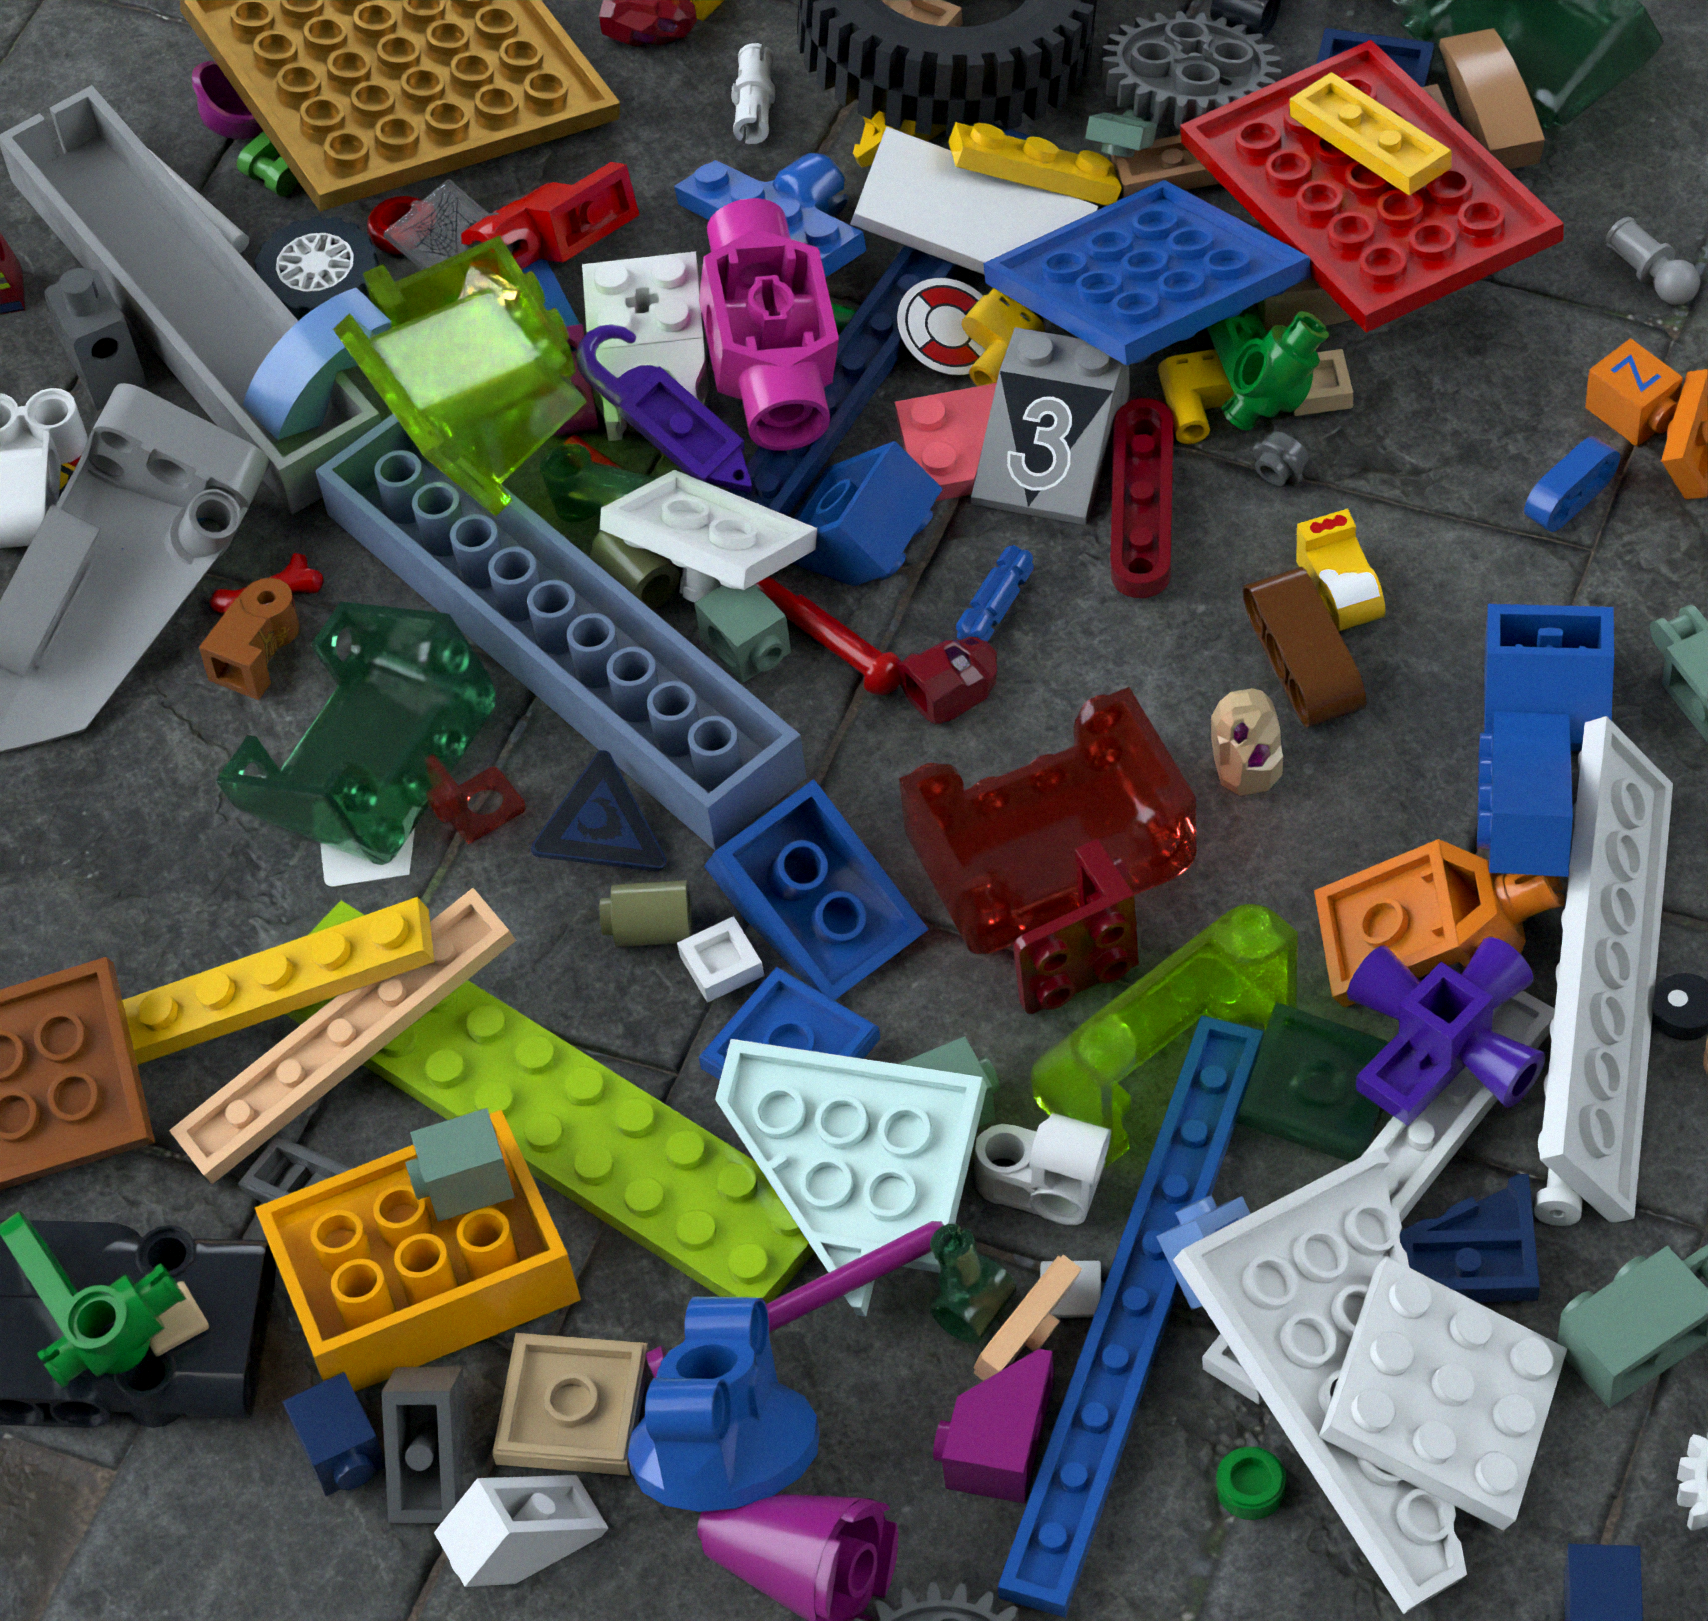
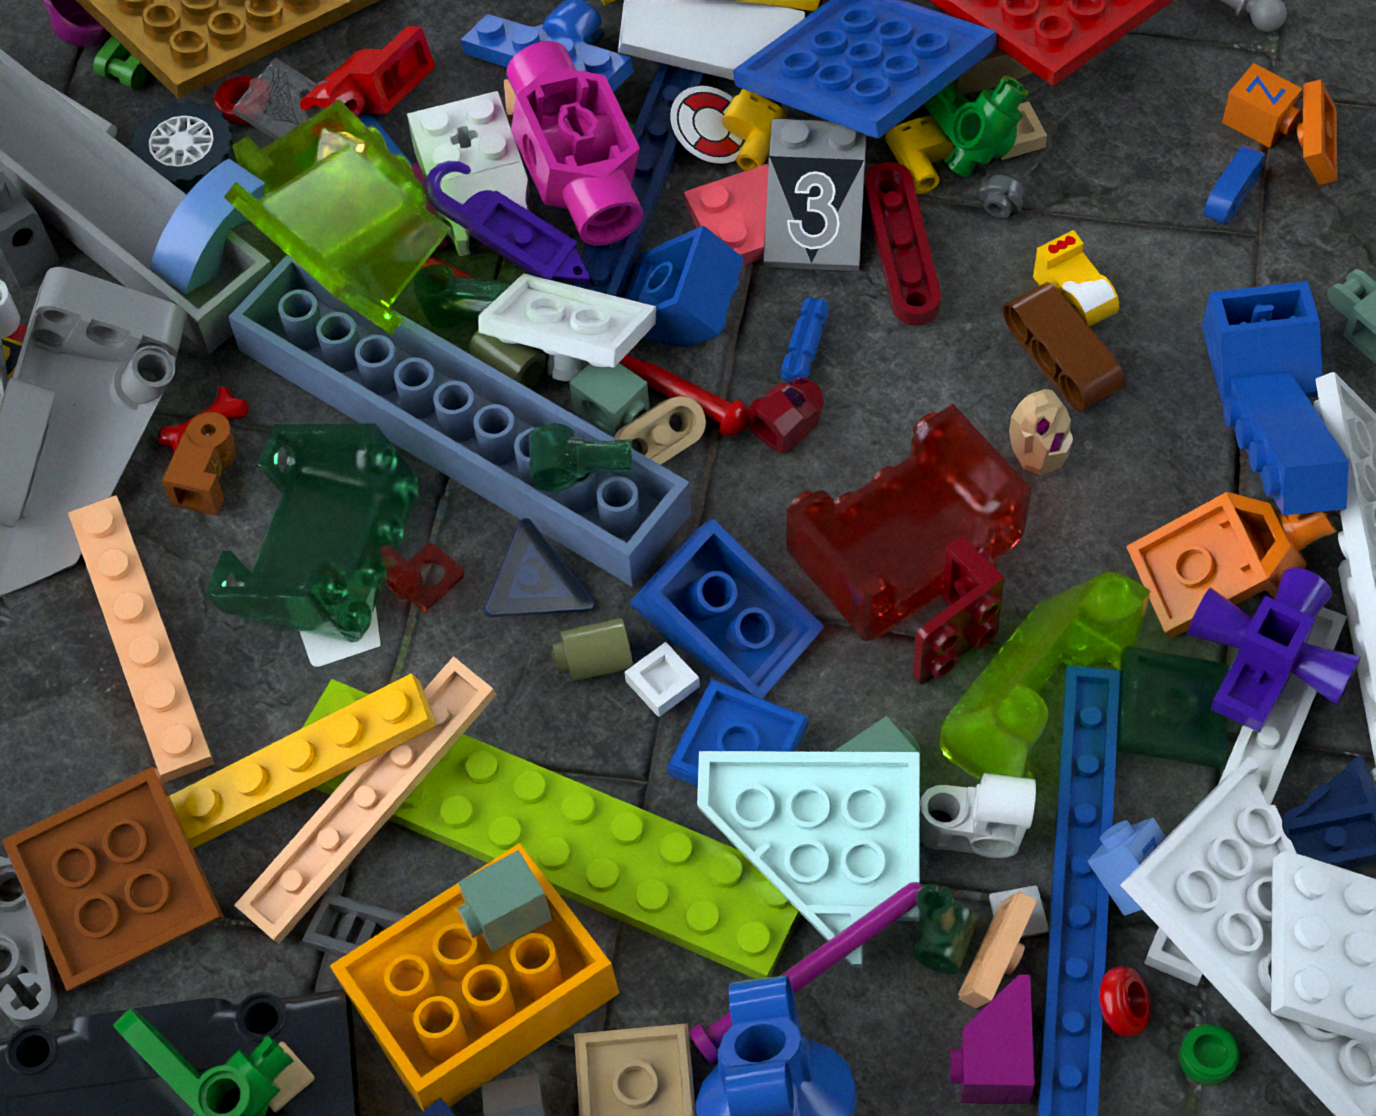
camera: 15 degrees left, 5 degrees up
(136, 823) = (140, 639): none -> light nougat plate
(654, 681) = (561, 458): none -> clear green pin
(786, 676) = (657, 437): none -> tan plate
(1145, 1403) = (1124, 1001): none -> red piece

